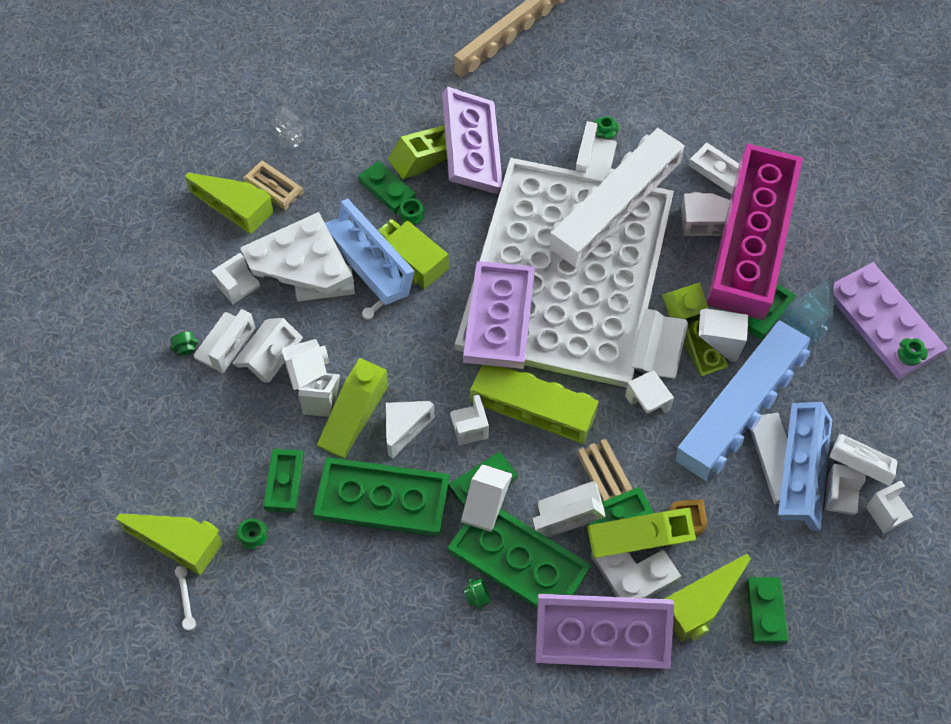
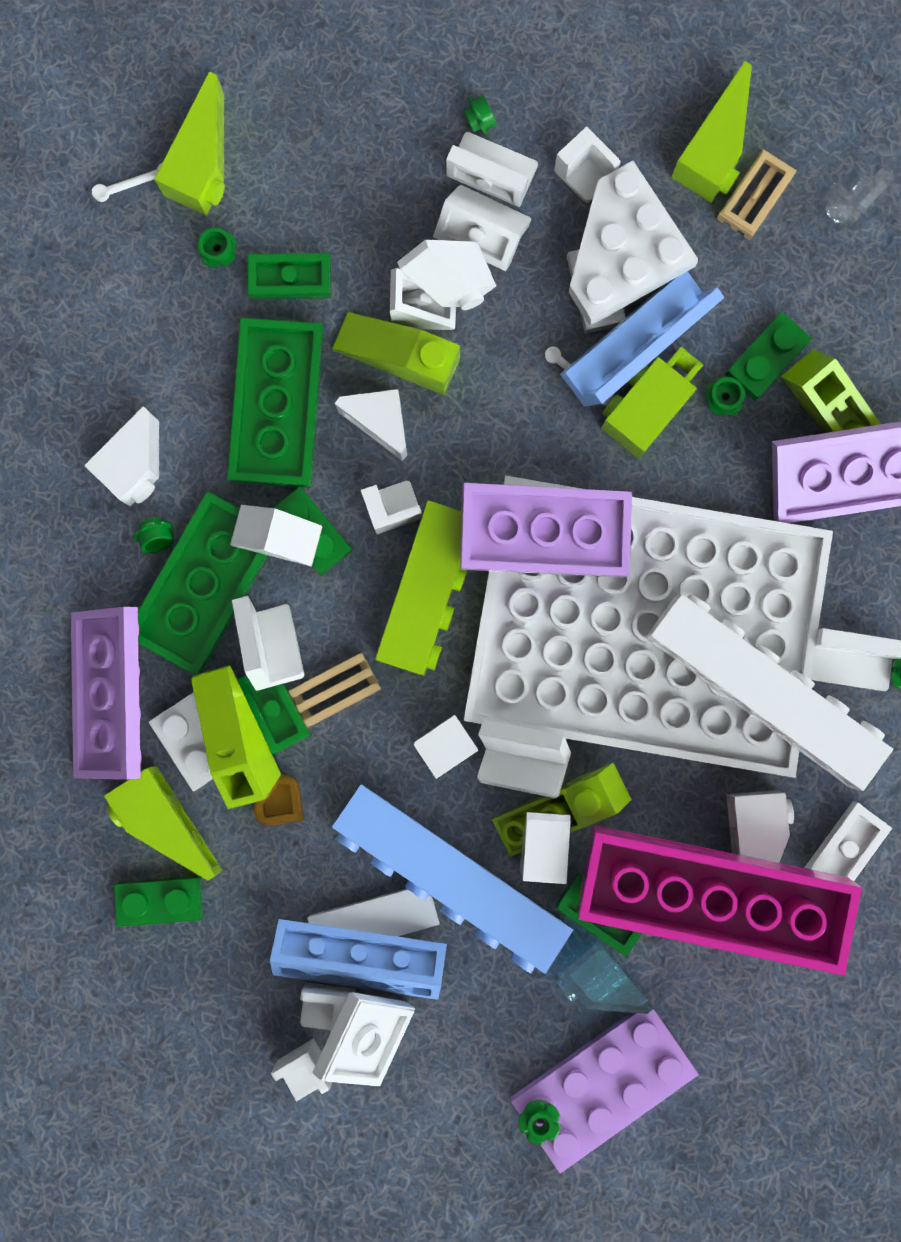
camera: 90 degrees right, 25 degrees up
(416, 605) = (130, 459): none -> white slope

